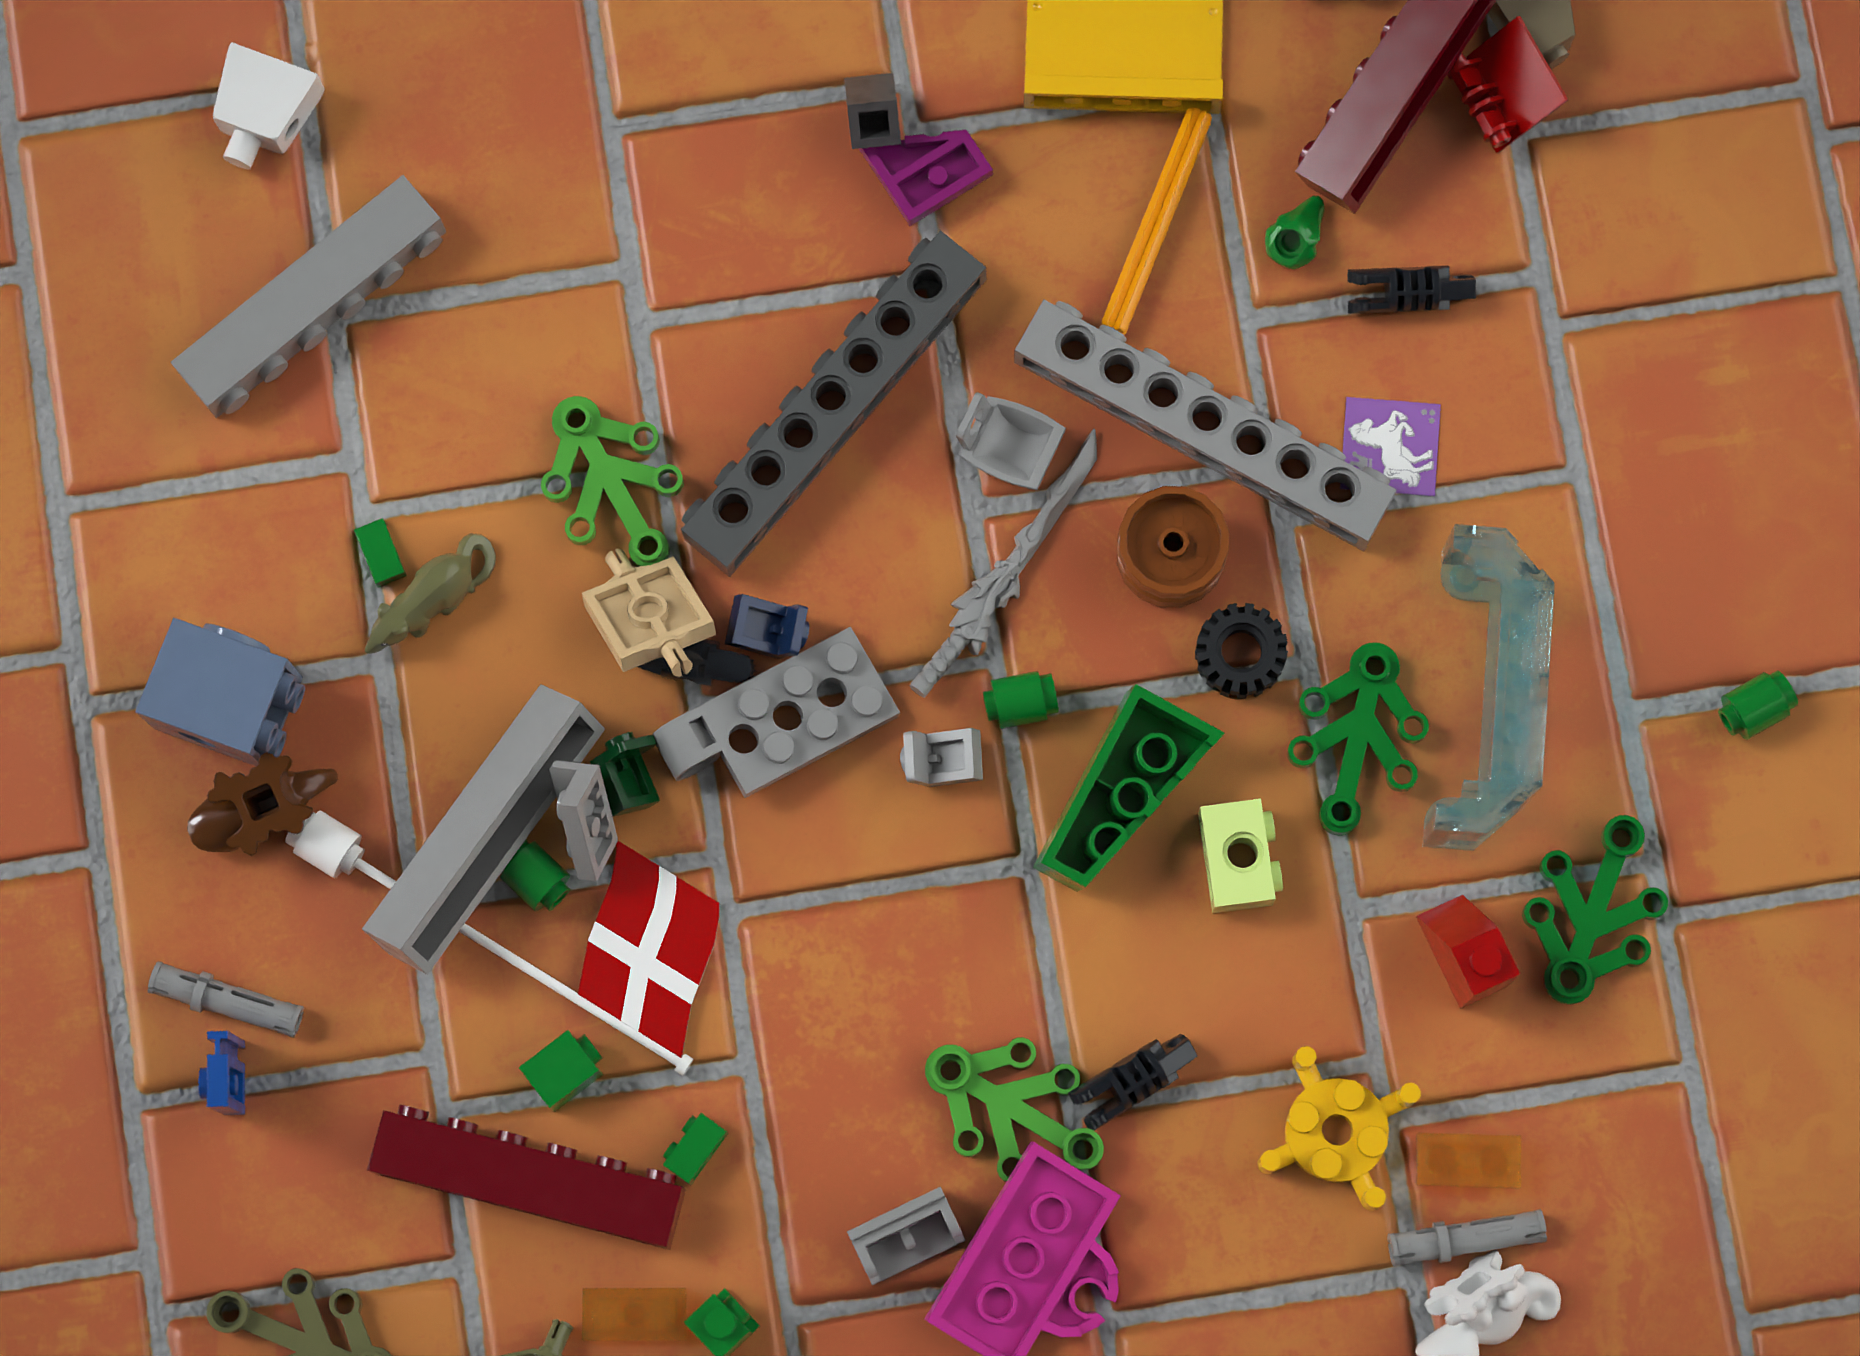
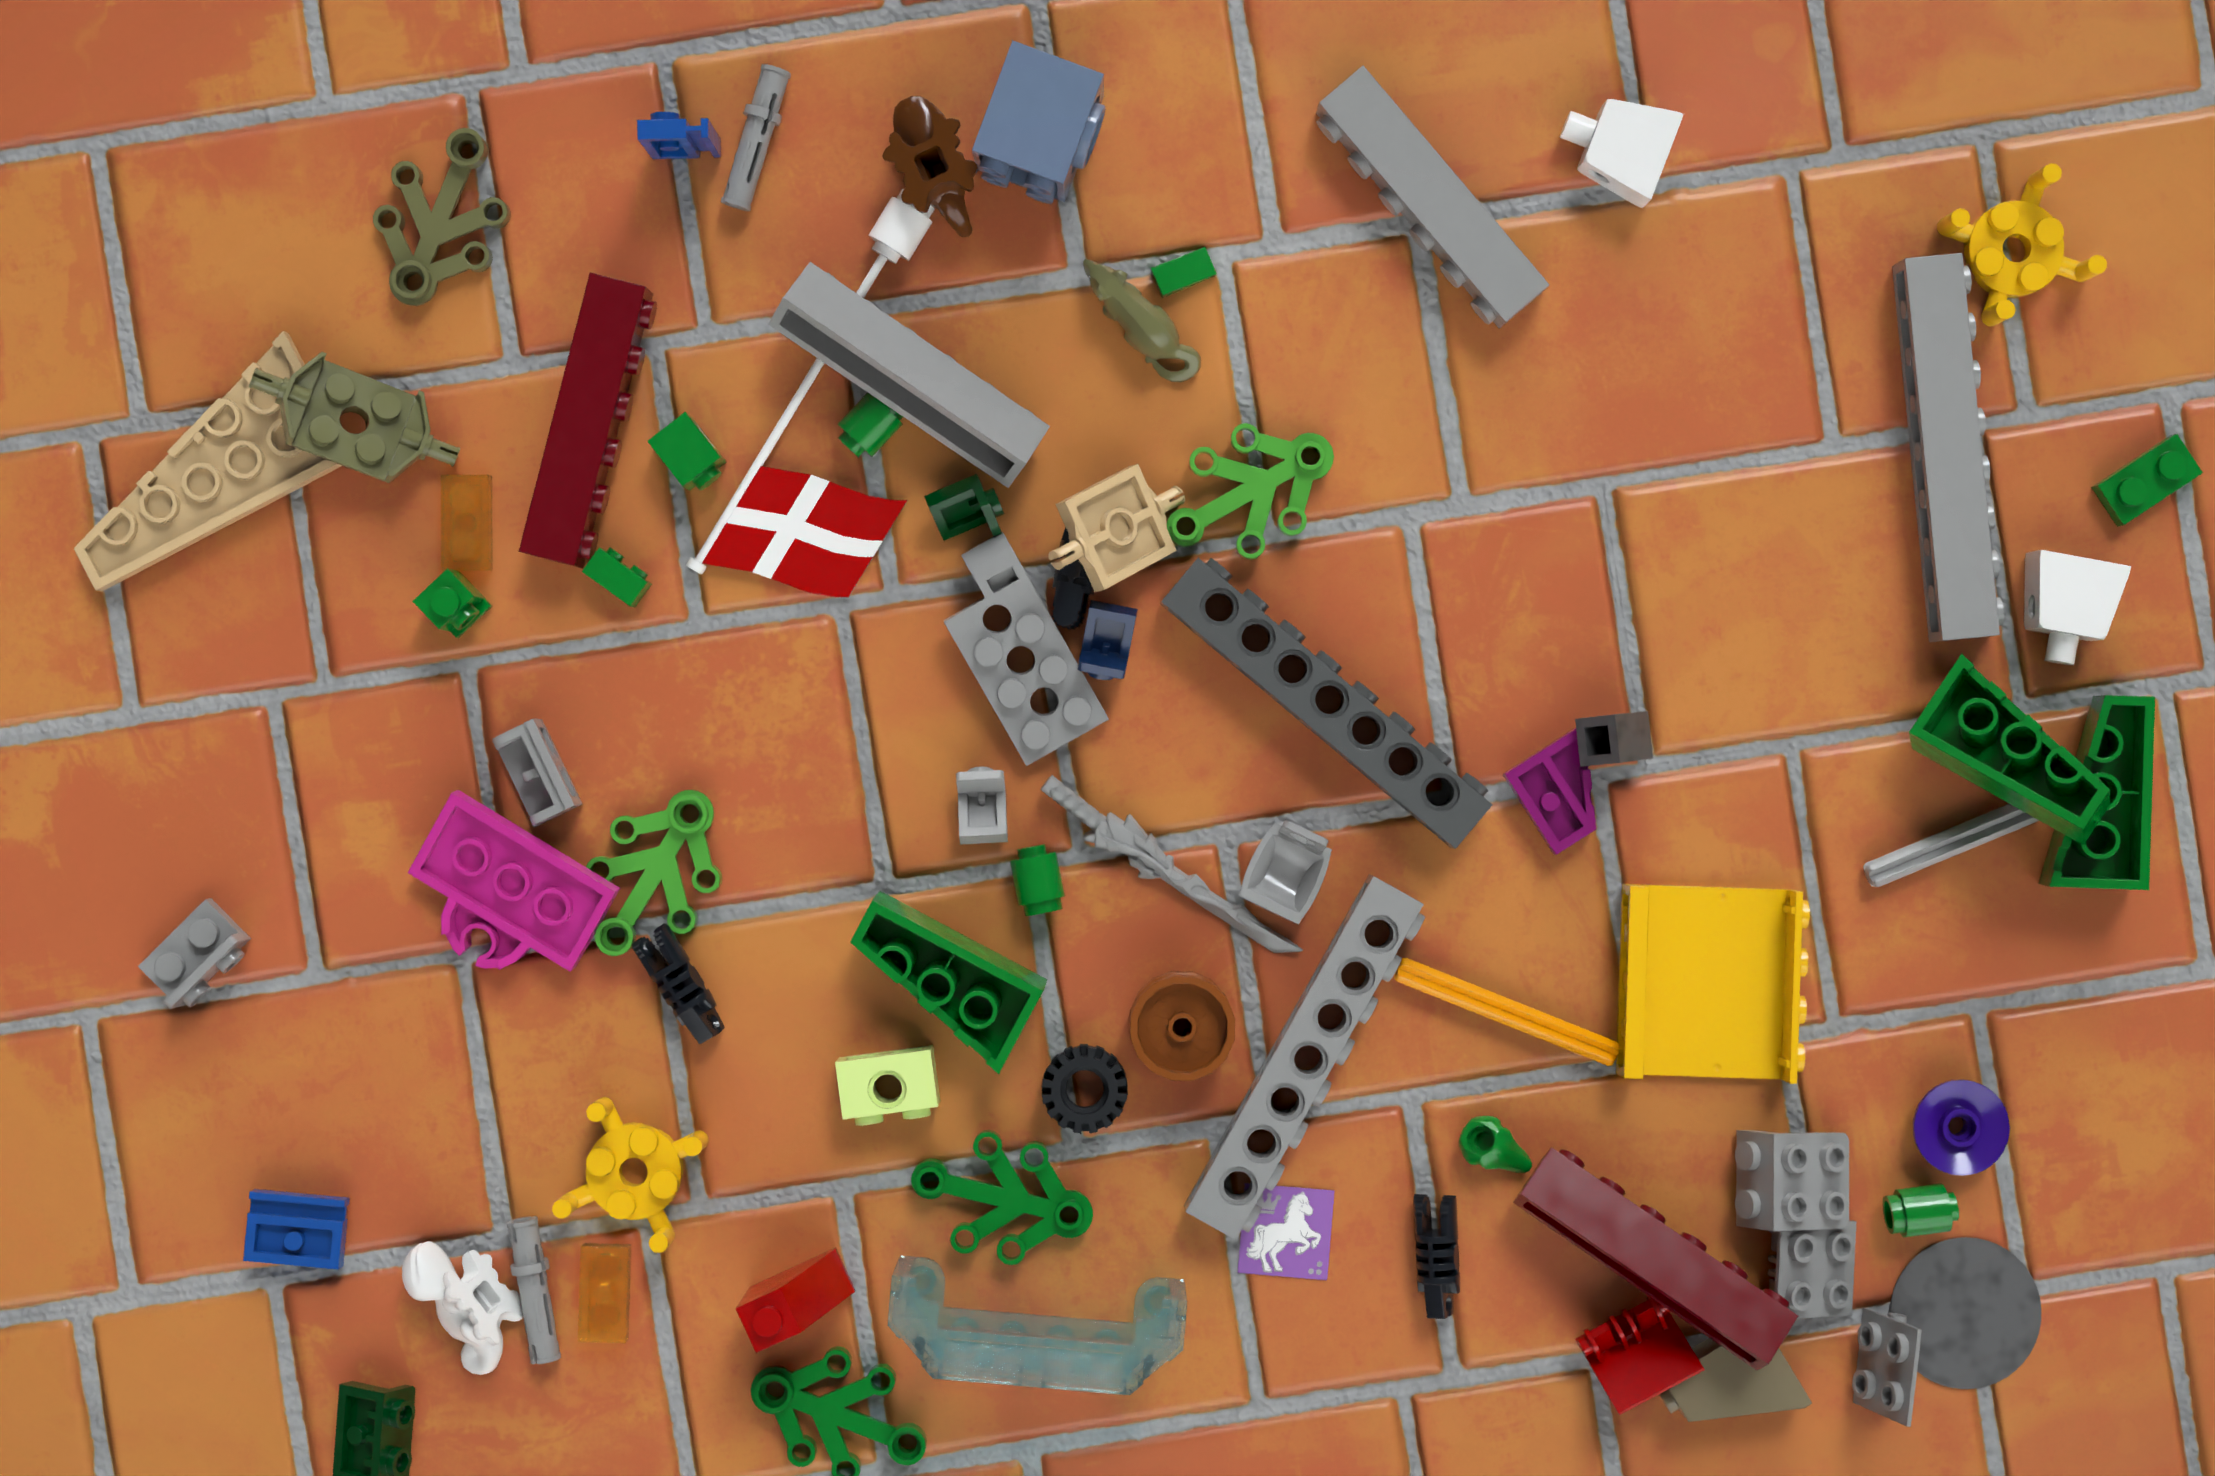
camera: 85 degrees right, 10 degrees up
(585, 816) = (919, 469): light grey bracket -> none

